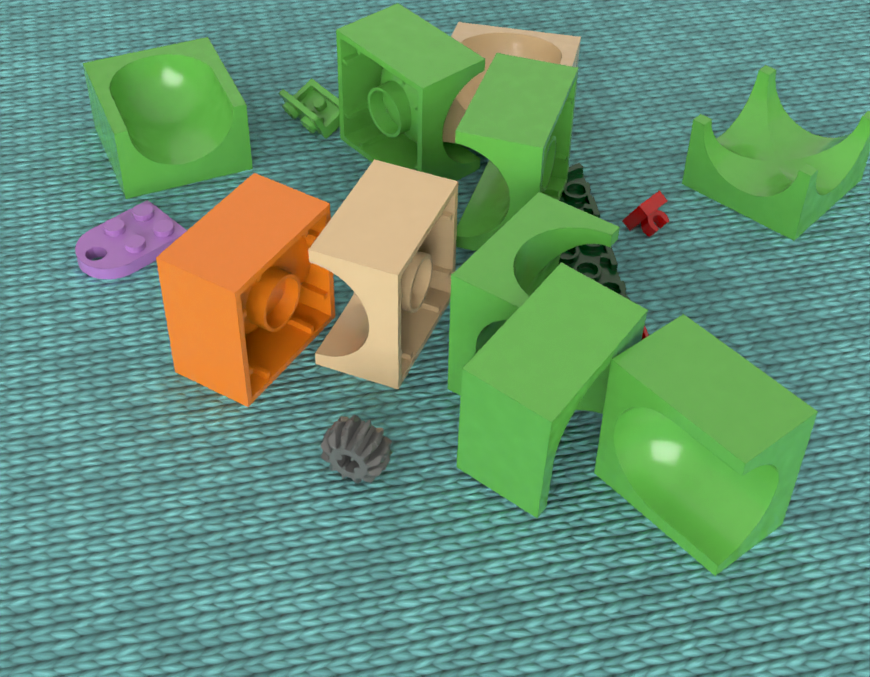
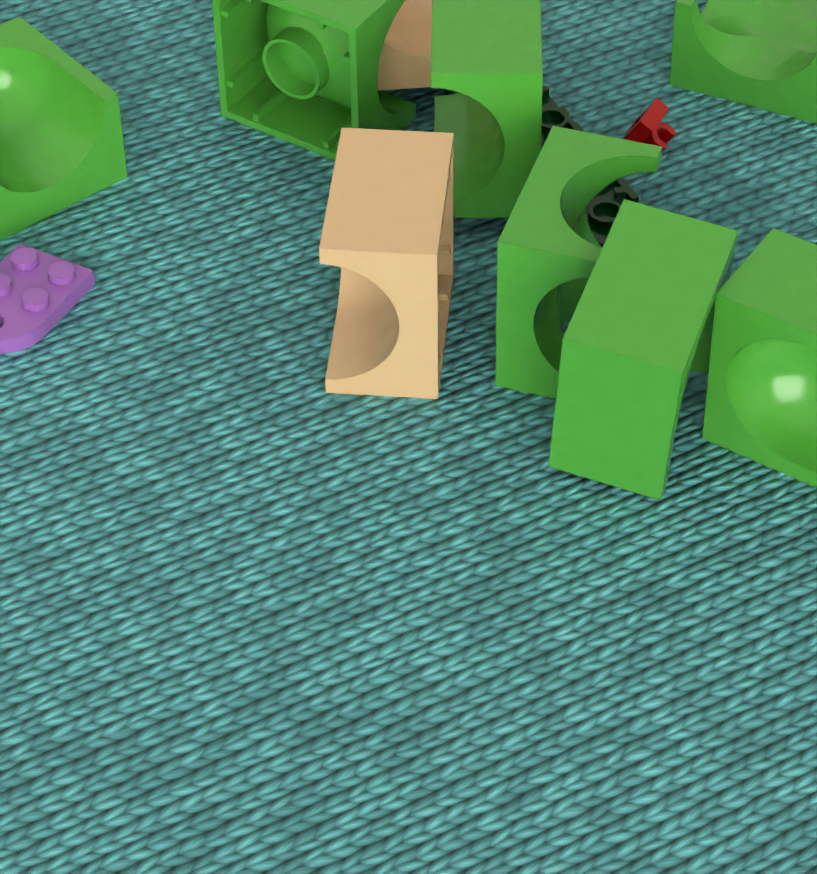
camera: 15 degrees left, 0 degrees up
(244, 288) = (235, 315): orange piece -> none
(315, 108) = (177, 81): bright green bracket -> none
(356, 449) = (433, 470): dark grey gear -> none

